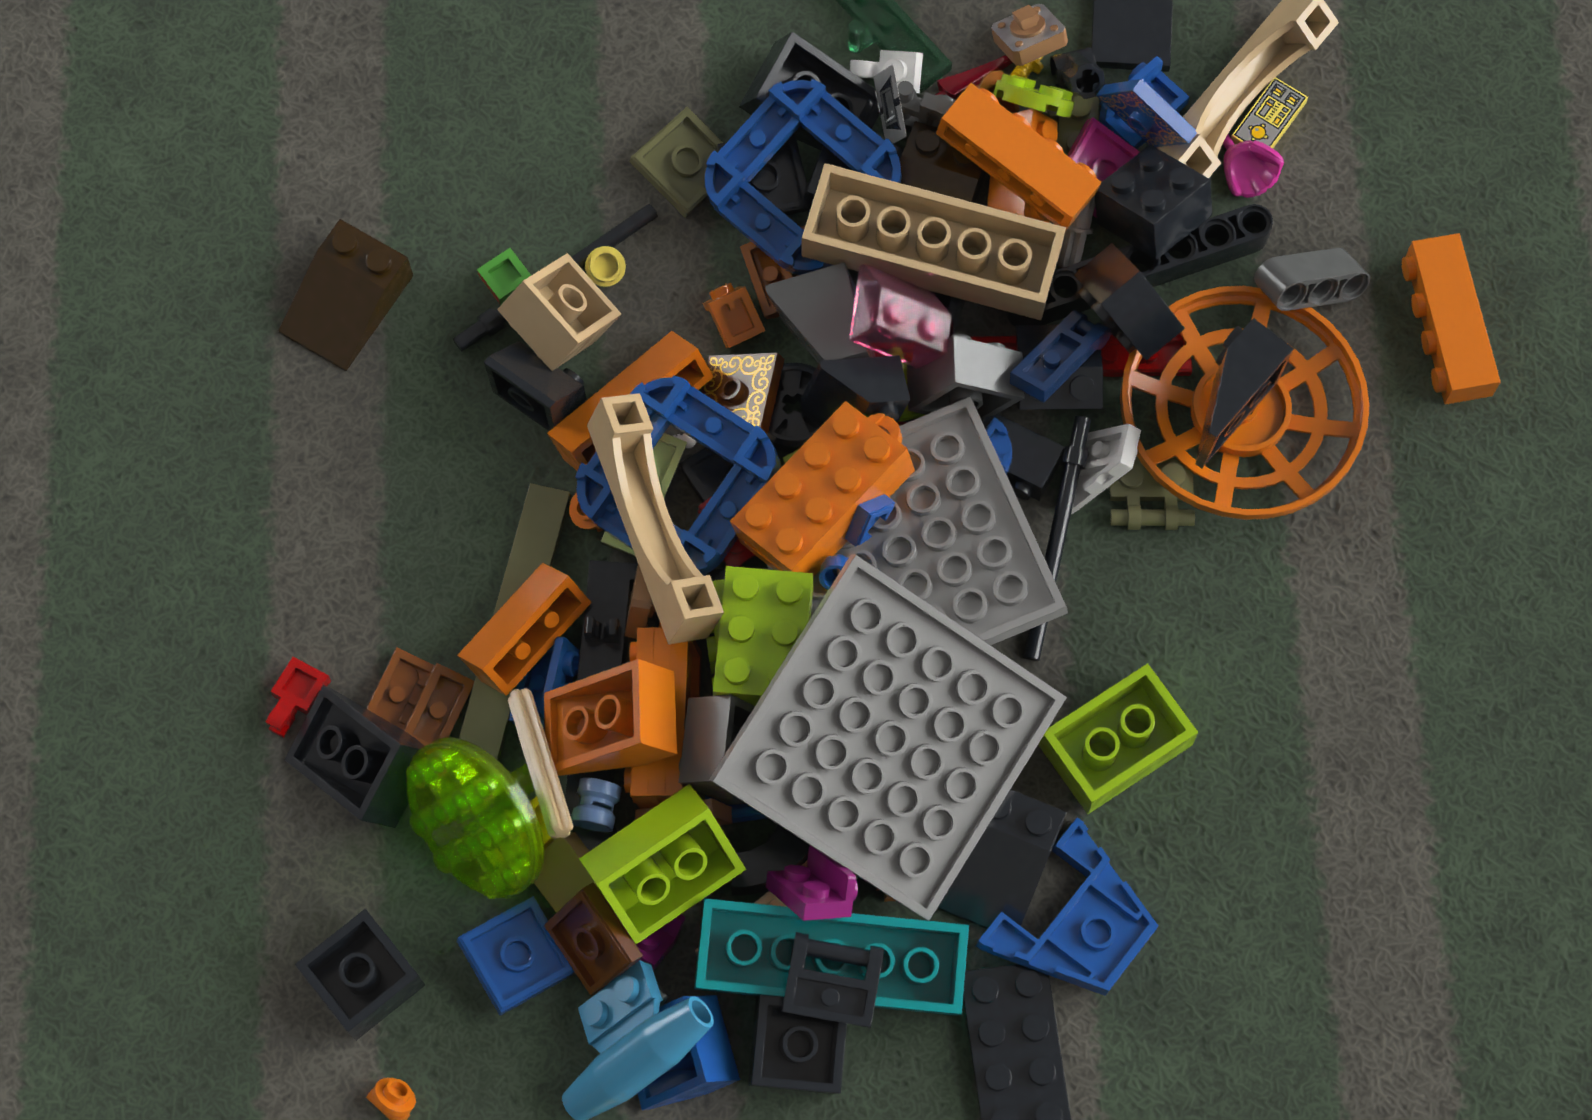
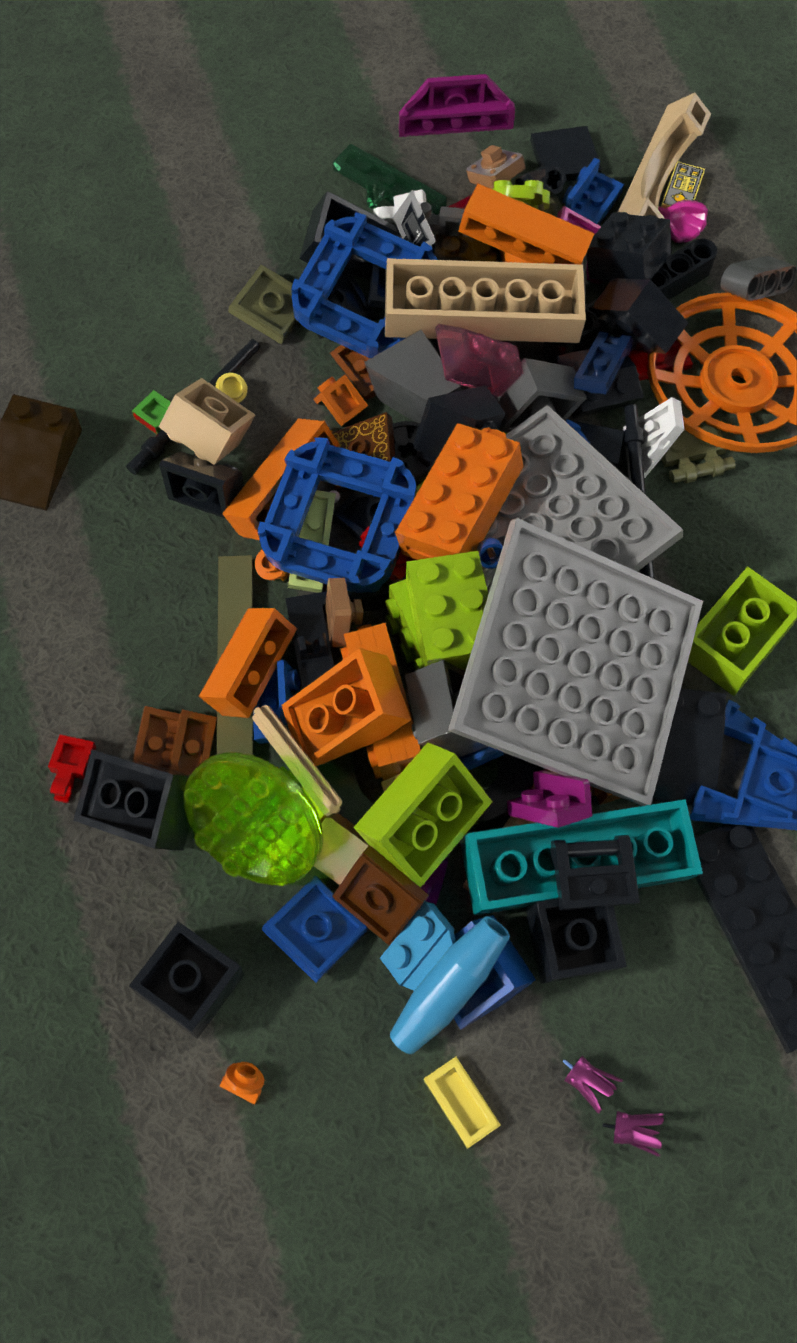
camera: 20 degrees left, 5 degrees down
(596, 804) = (350, 782): medium blue wheel -> none
(680, 593) = (377, 596): tan arch -> none
(866, 516) = (500, 504): blue tile -> none
(1147, 113) = (605, 188): blue plate -> none
(1245, 375) = (743, 348): black slope -> none

